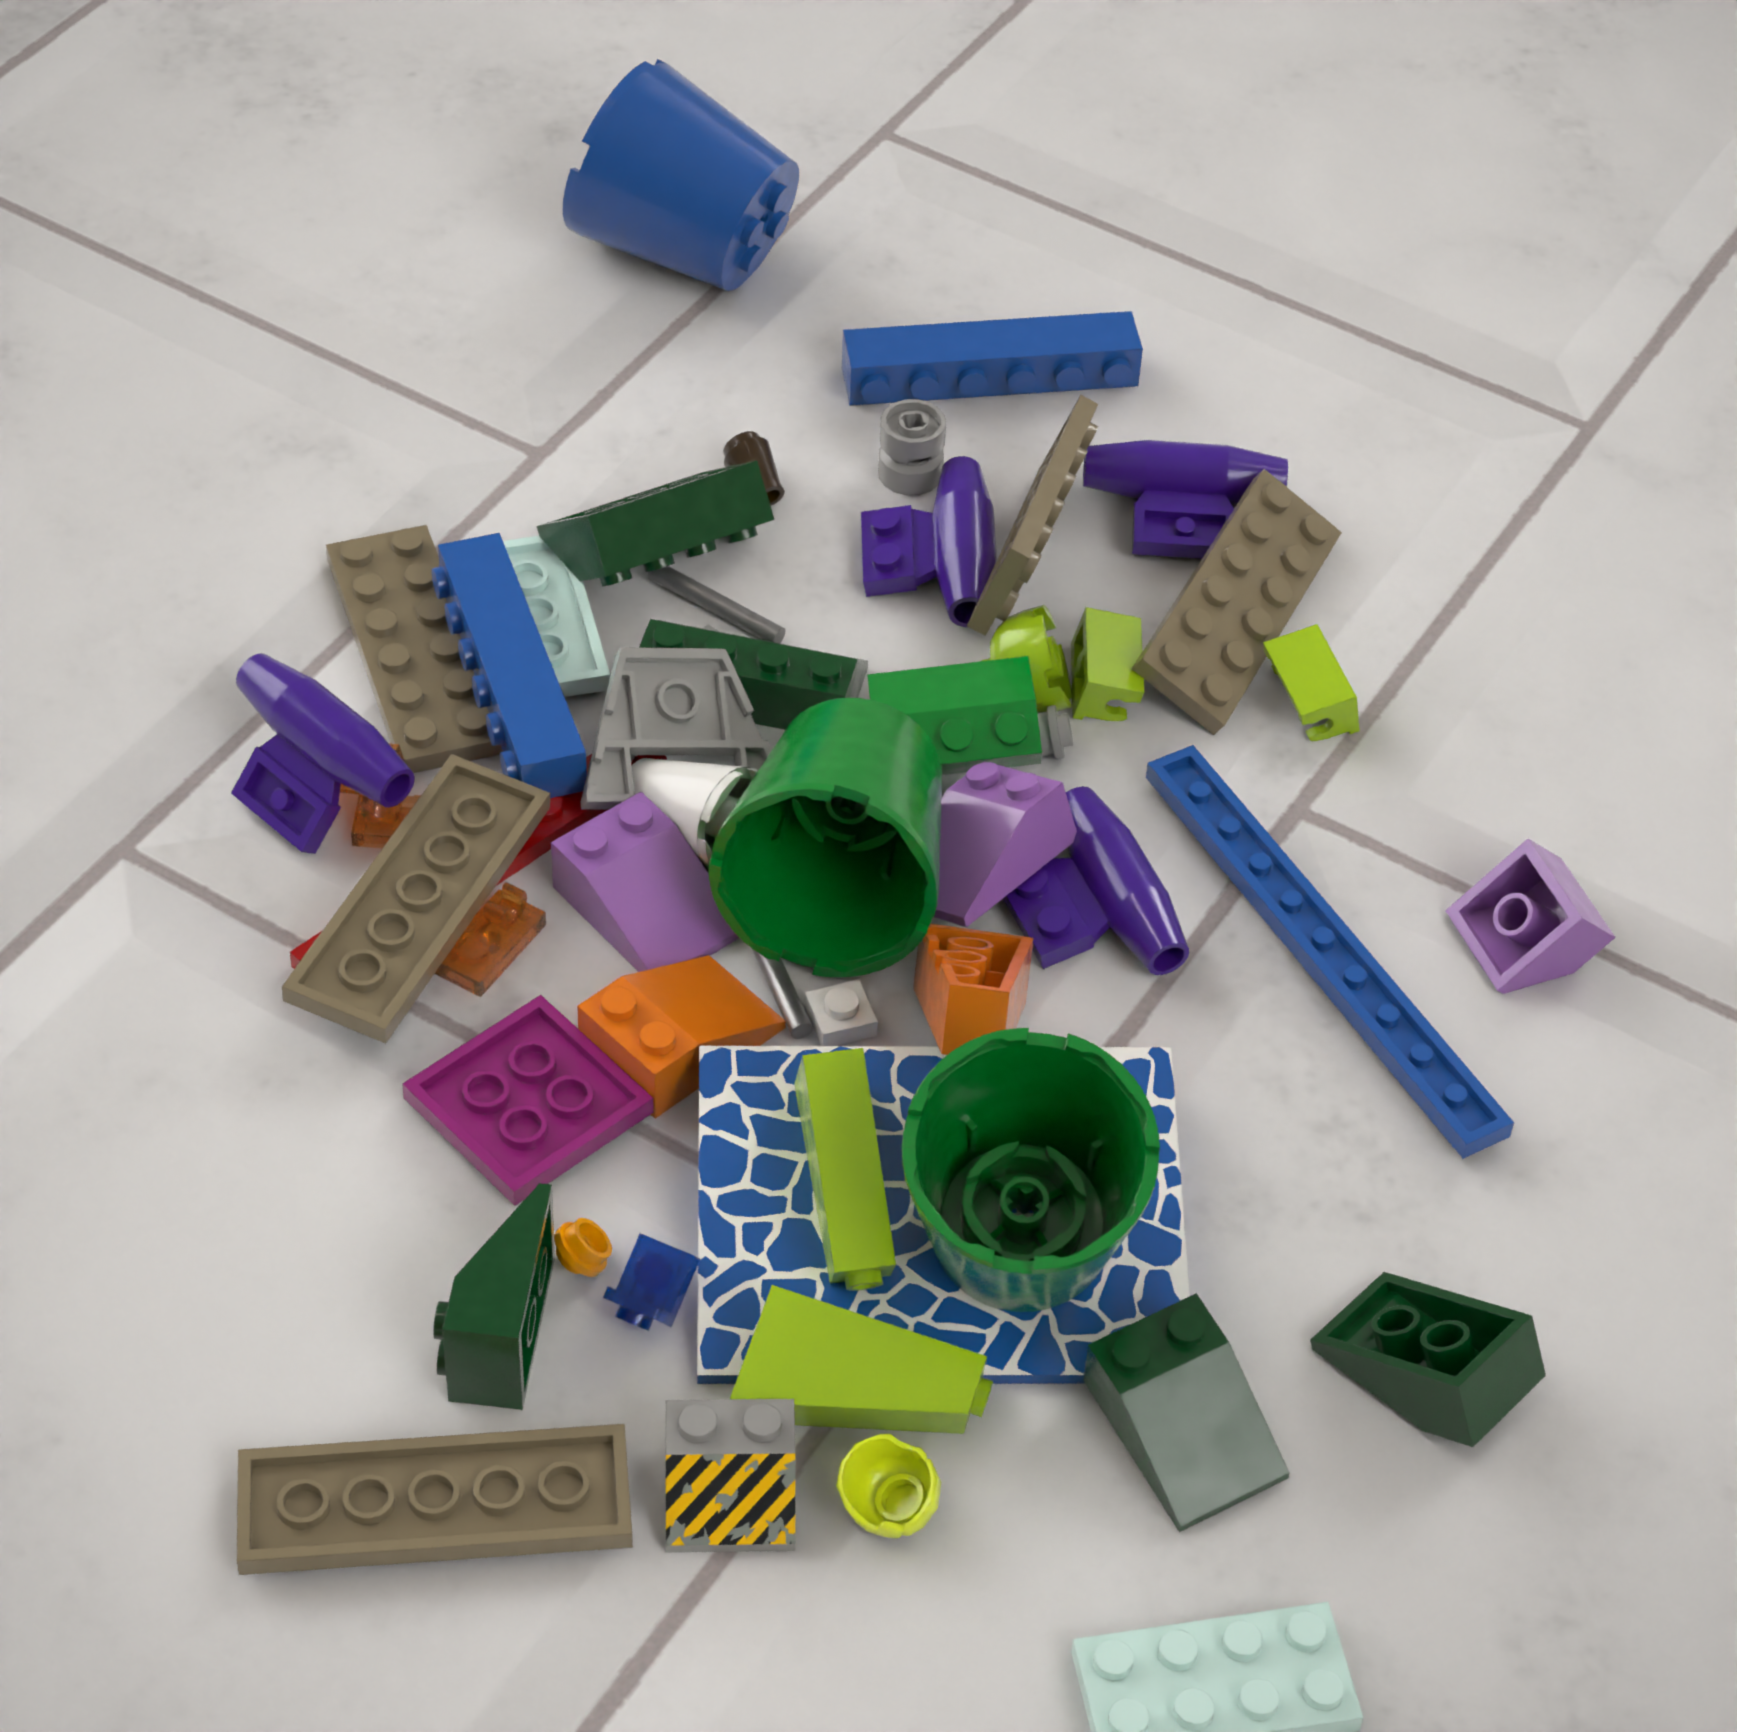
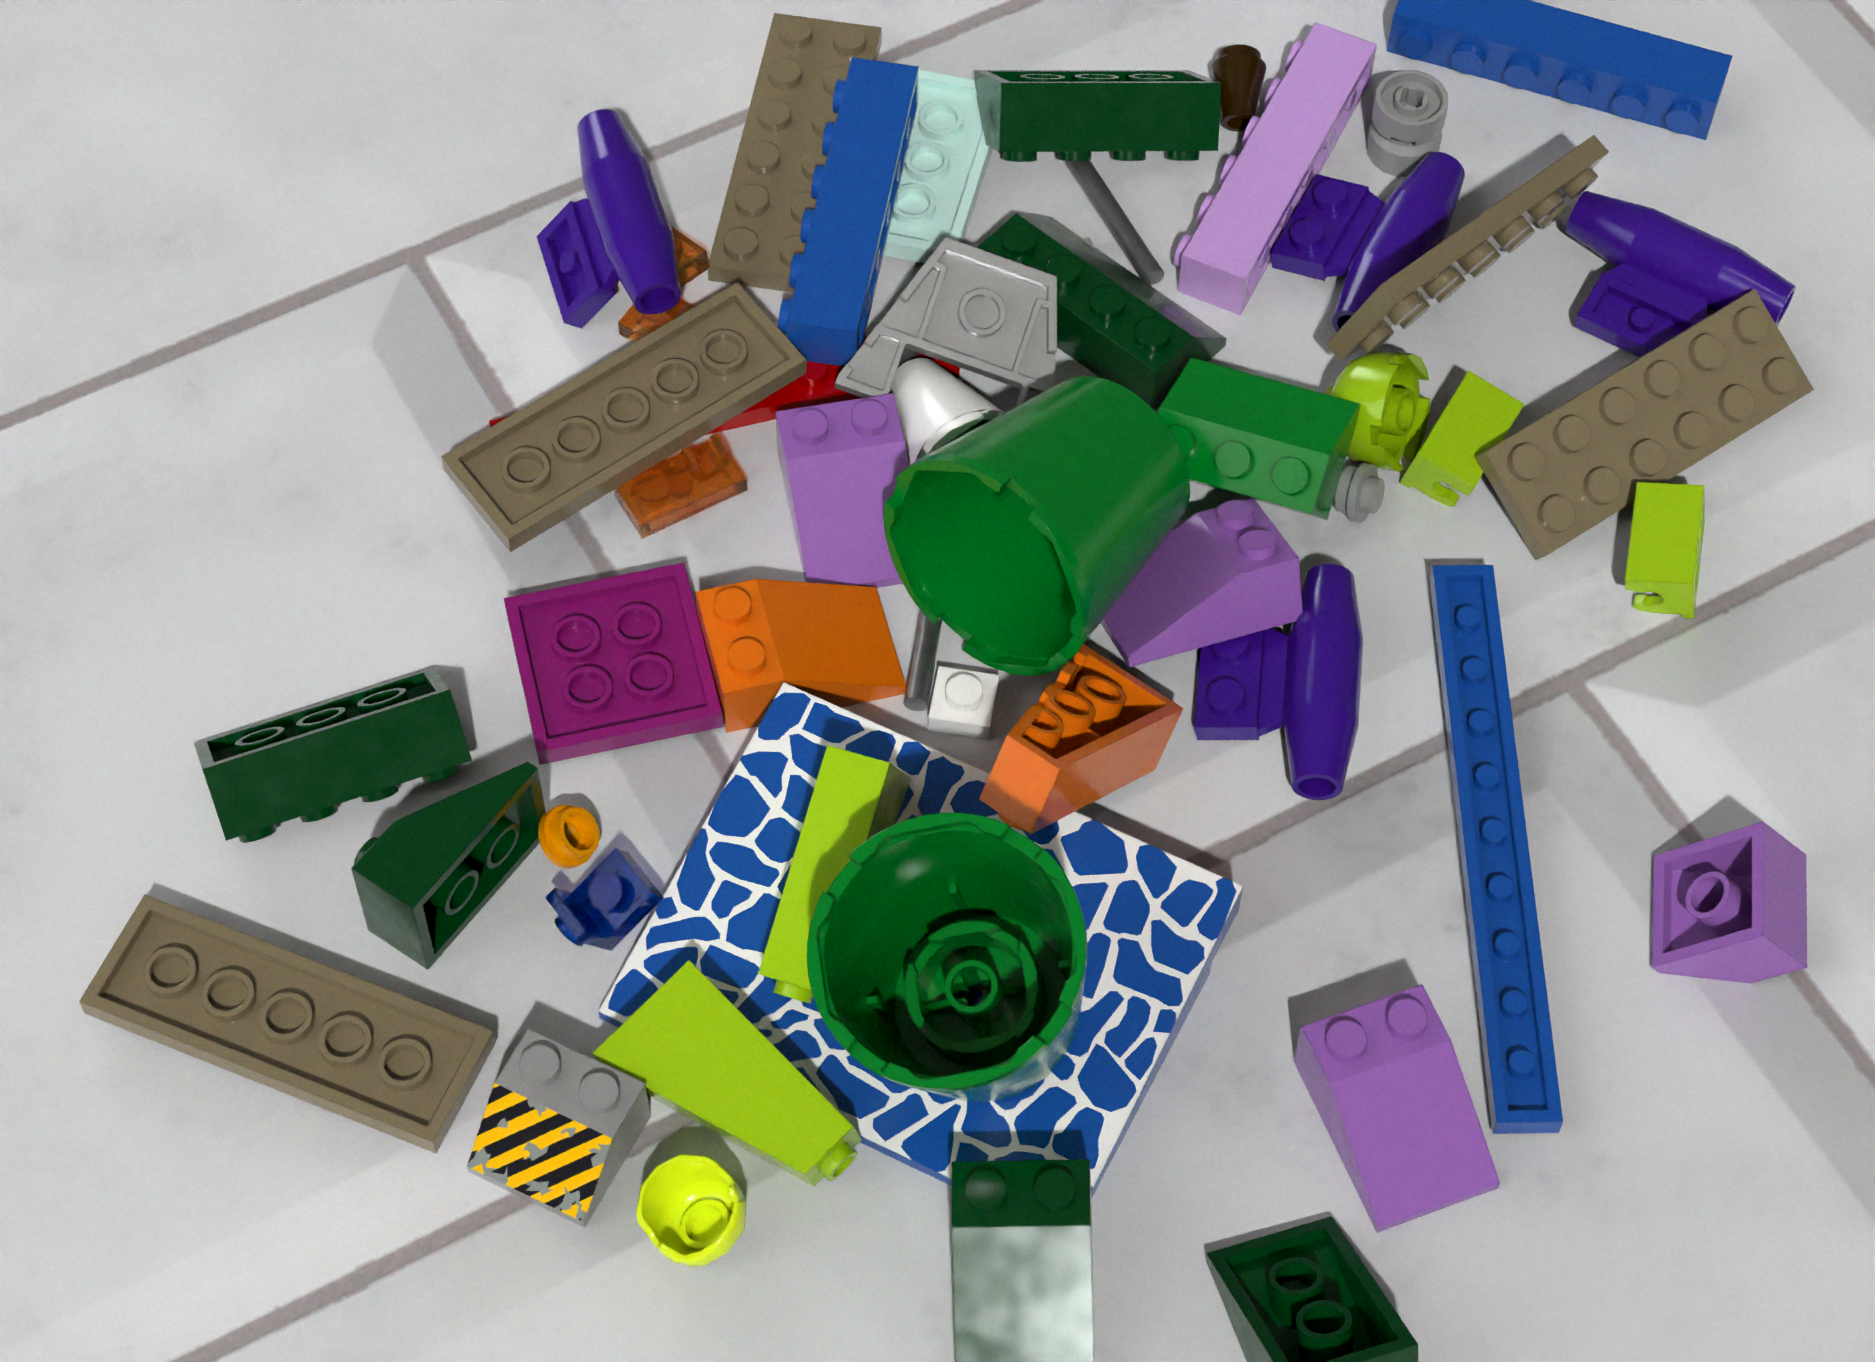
camera: 30 degrees right, 10 degrees up
(330, 1268) = (333, 754): none -> dark green slope
(826, 520) = (1274, 168): none -> lavender brick
(1381, 1166) = (1396, 1107): none -> medium lavender slope

